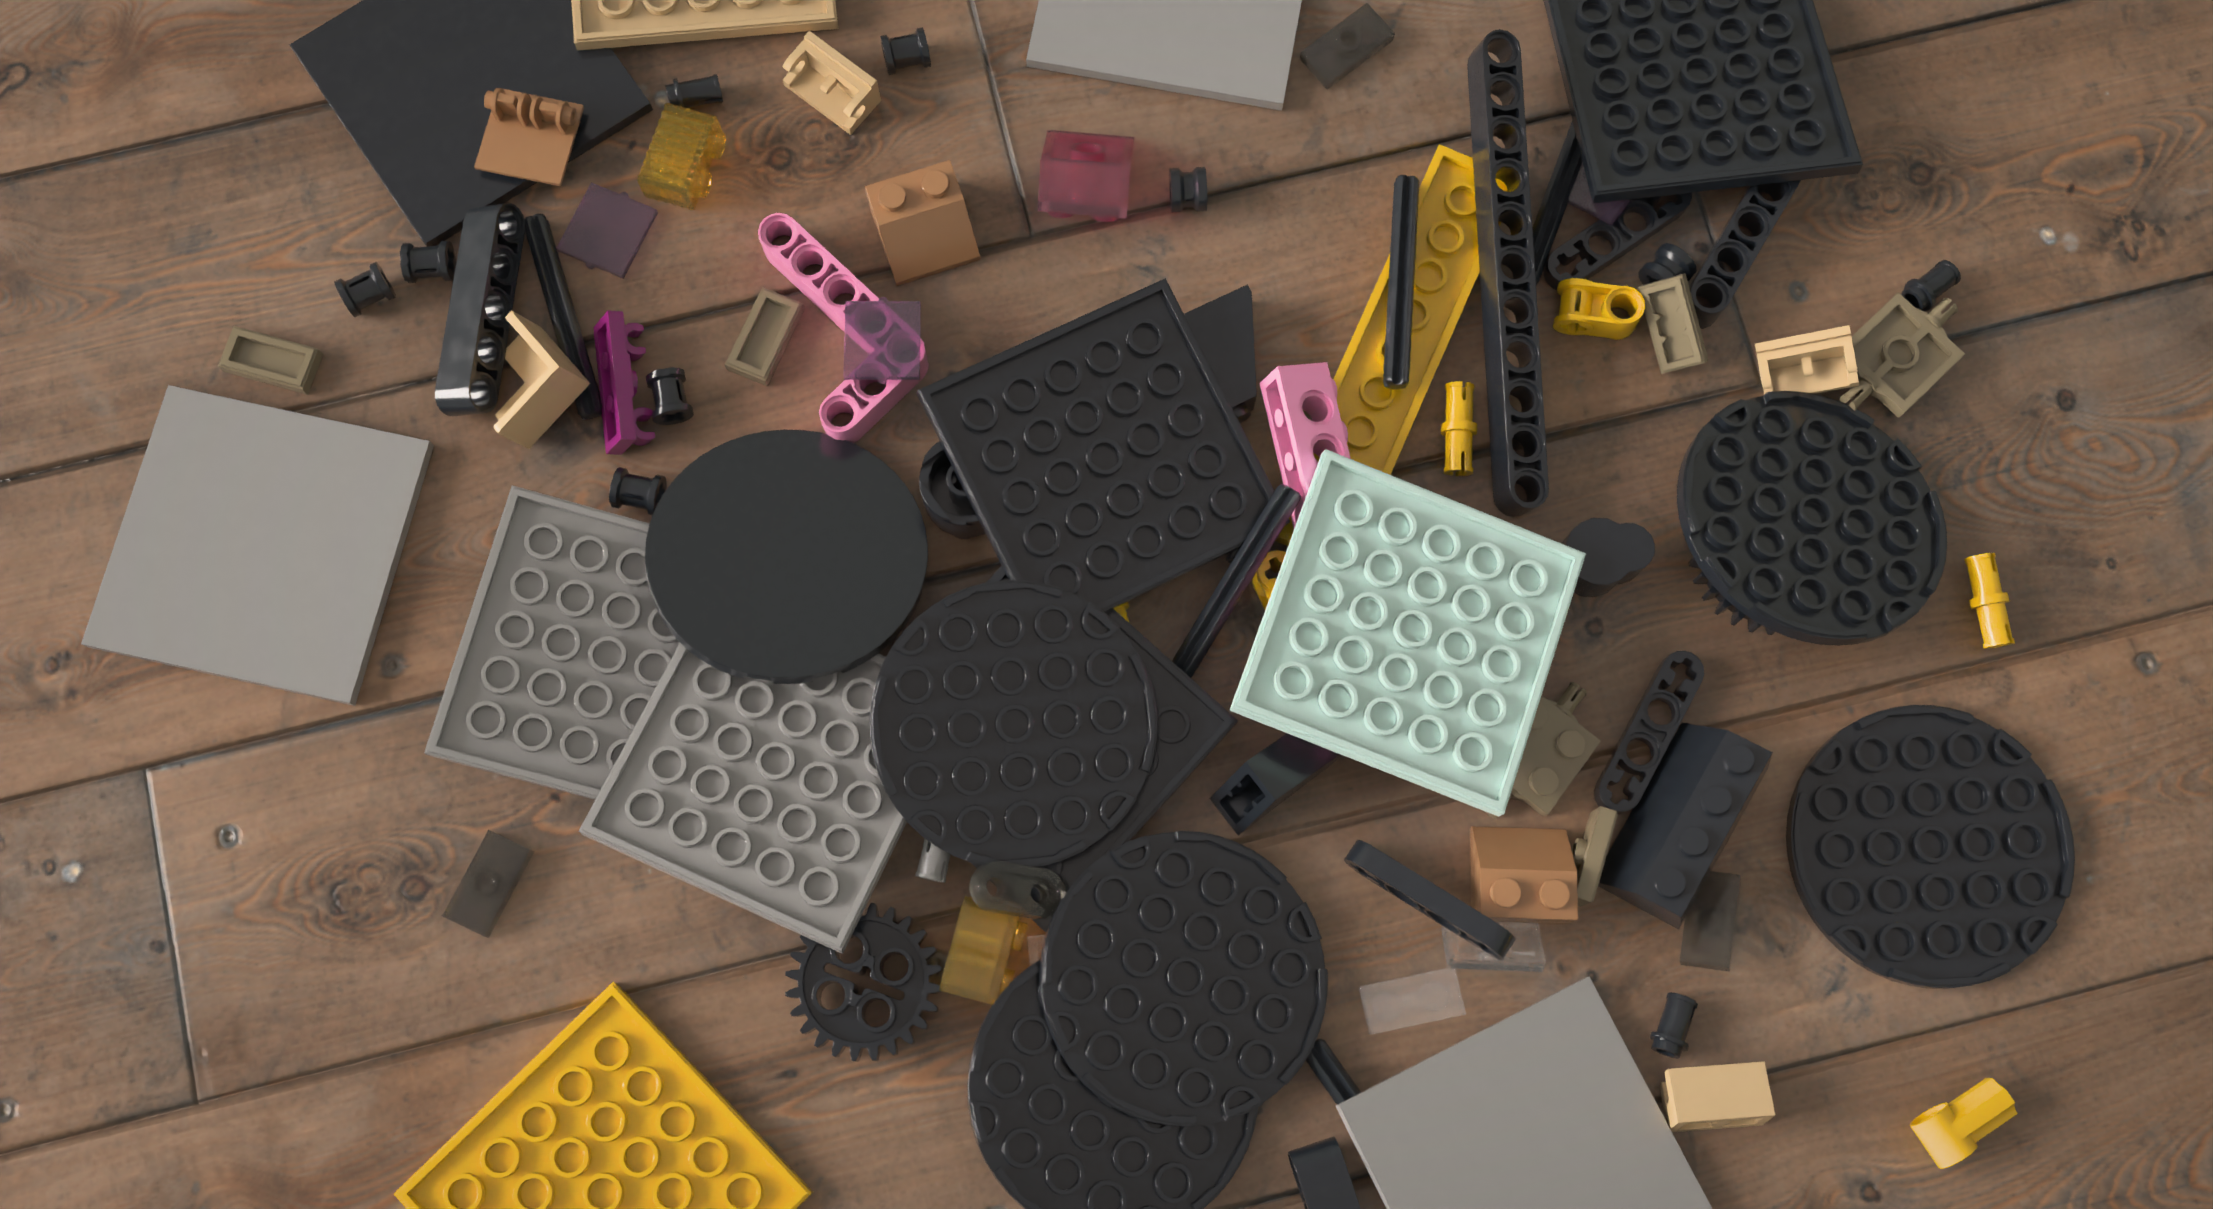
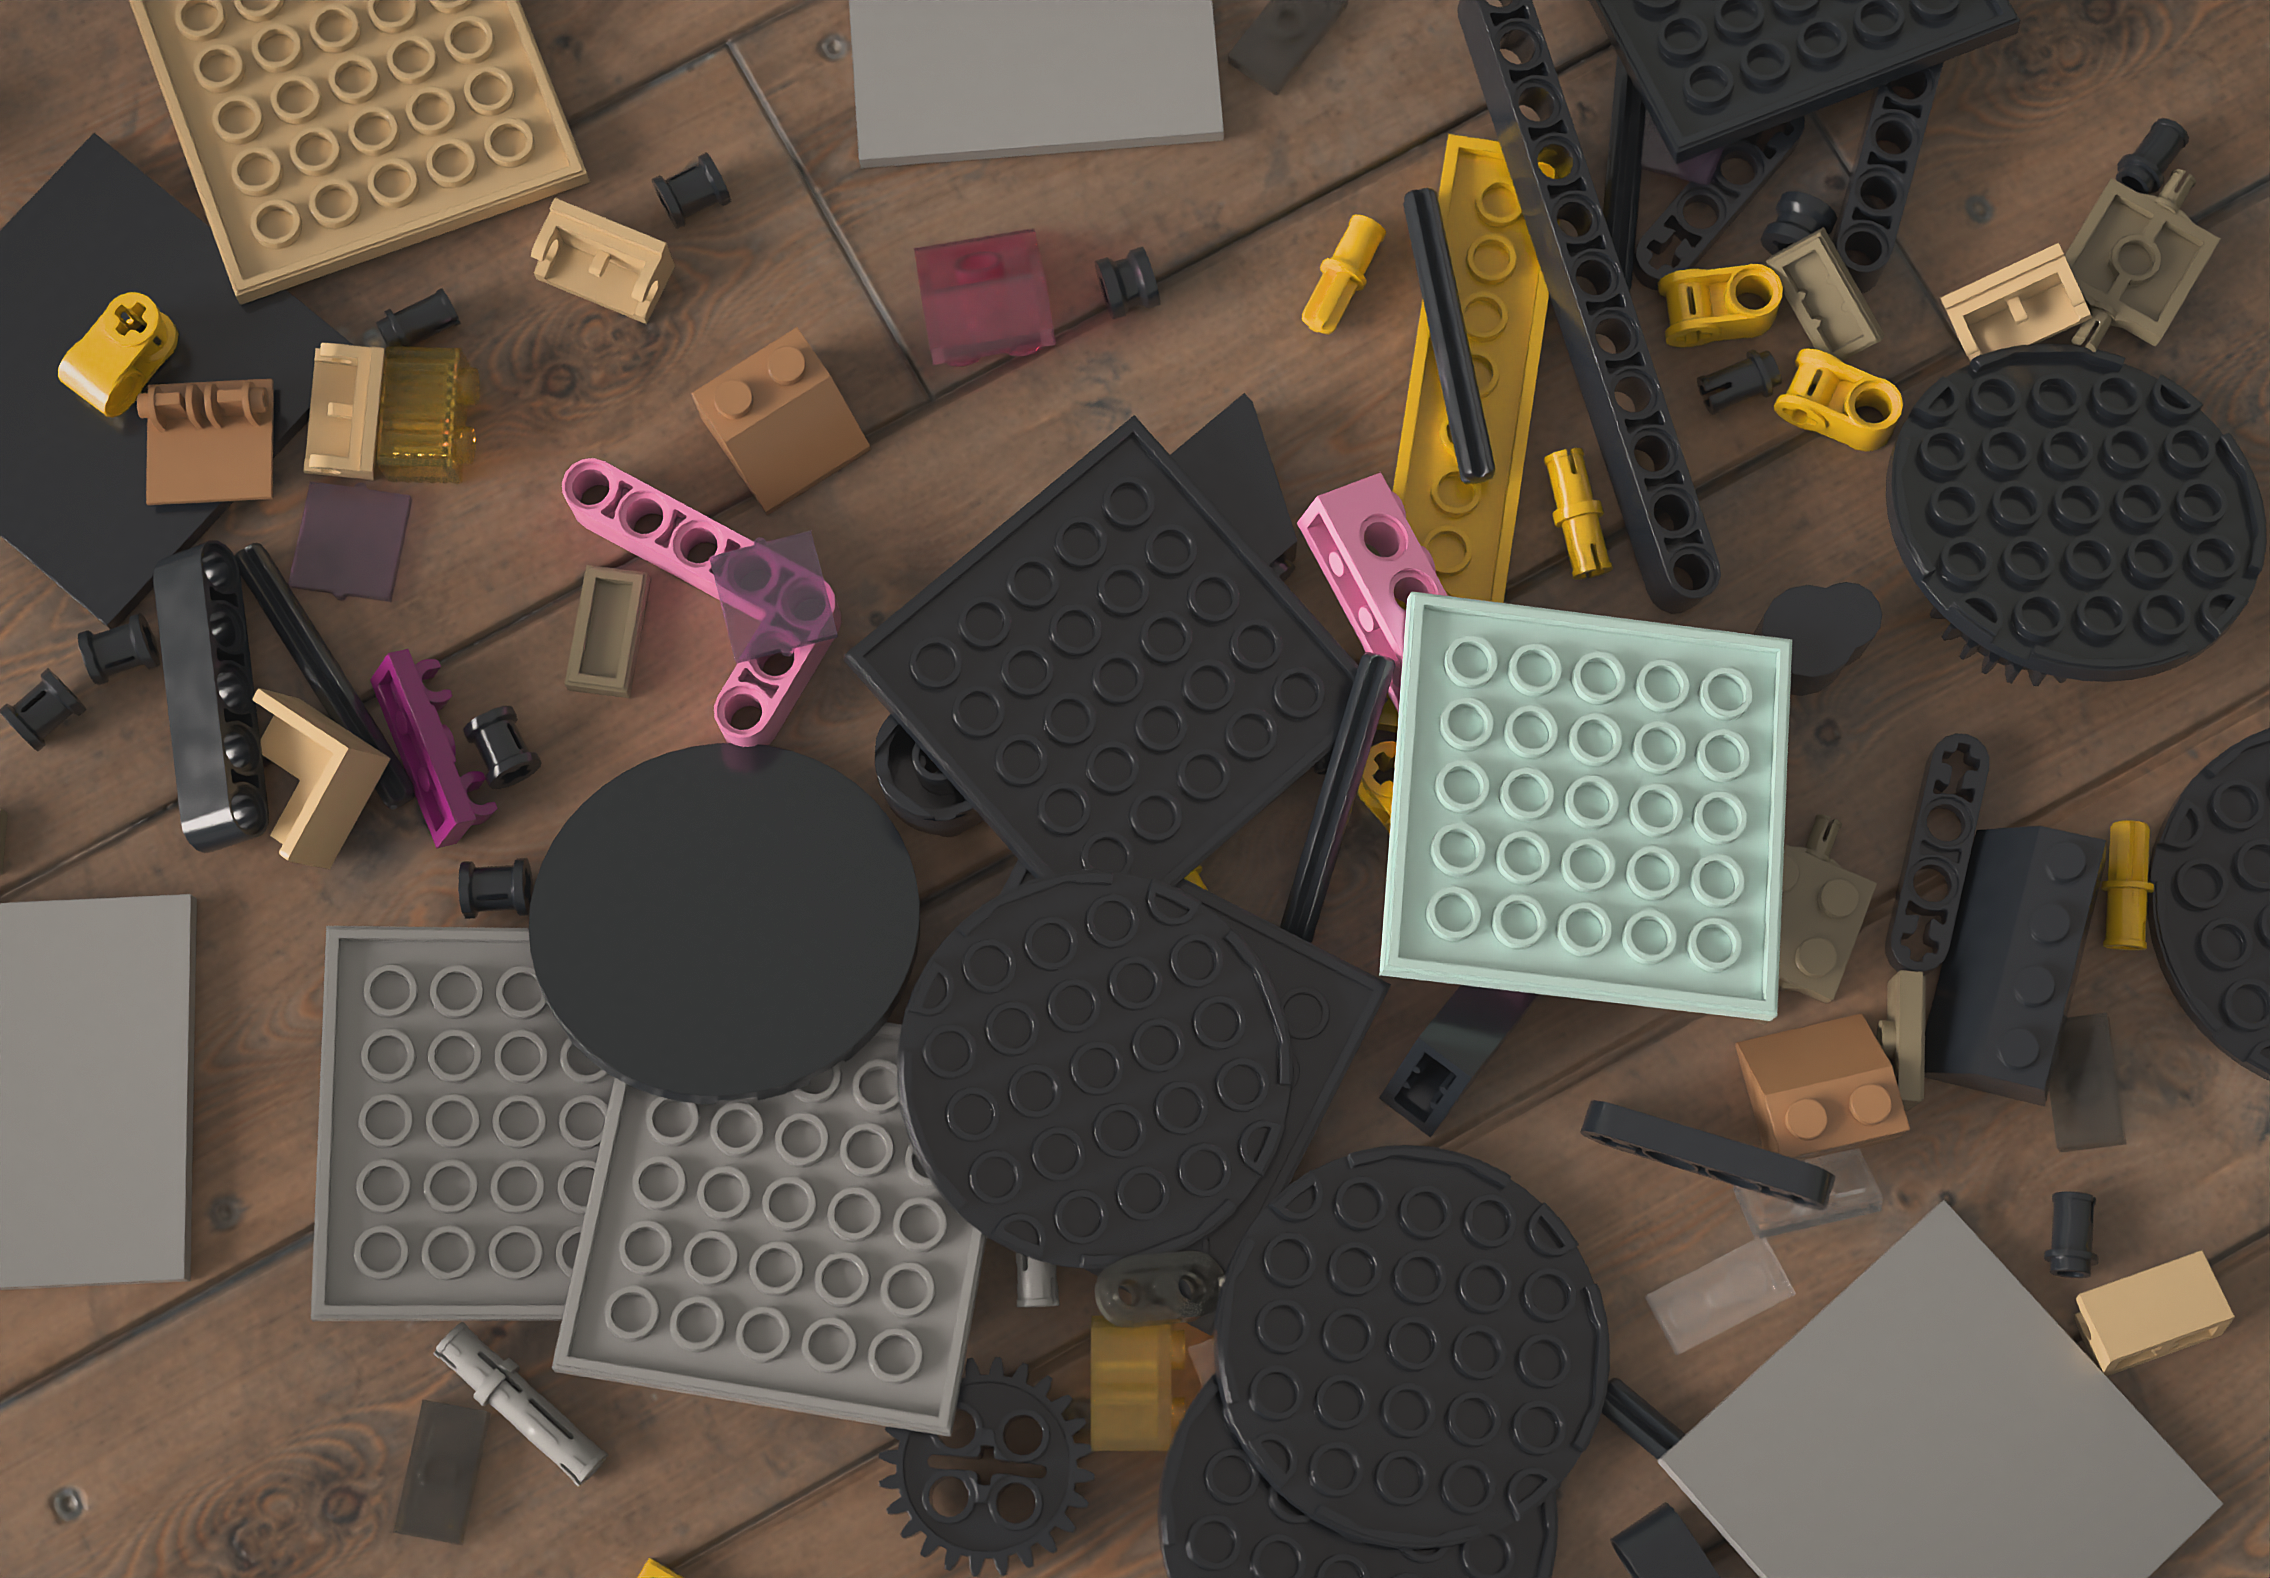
camera: 10 degrees left, 0 degrees up
(482, 63) = (114, 358): none -> yellow piece
(554, 850) = (510, 1394): none -> light grey pin
(626, 139) = (345, 411): none -> tan hinge
(1339, 222) = (1343, 274): none -> yellow axle
(1598, 366) = (1743, 380): none -> black pin
(1661, 396) = (1834, 401): none -> yellow piece
(1778, 790) = (2127, 886): none -> yellow axle

